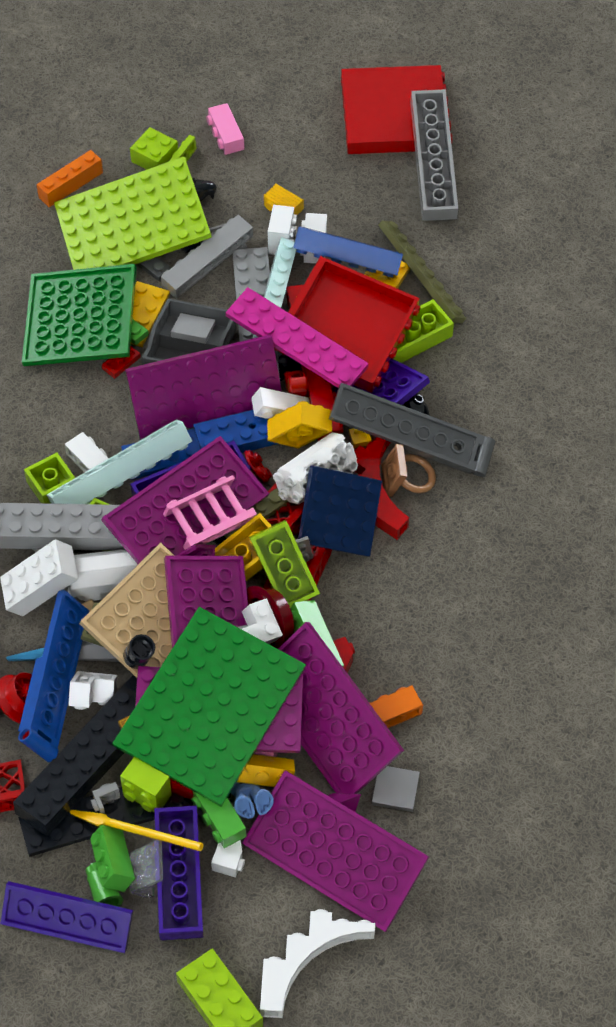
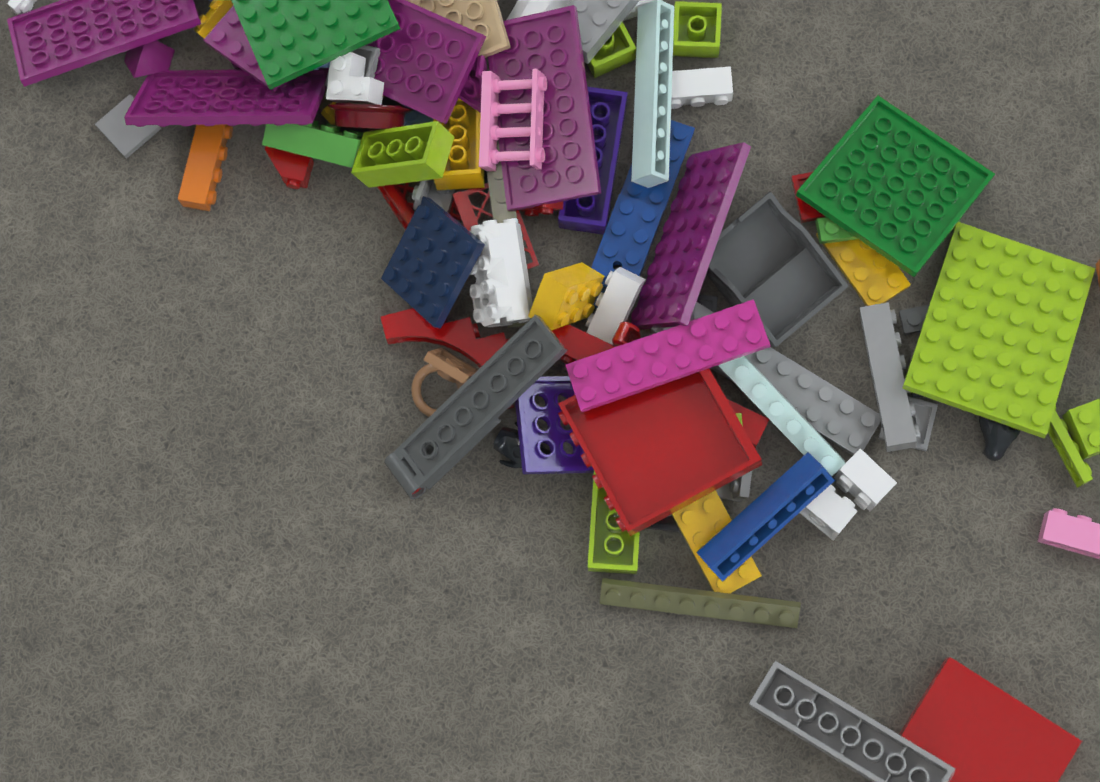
camera: 135 degrees right, 20 degrees up
(193, 328) = (790, 289): light grey tile -> none
(254, 461) = (564, 236): red dish -> none
(280, 196) = (913, 521): yellow brick -> none

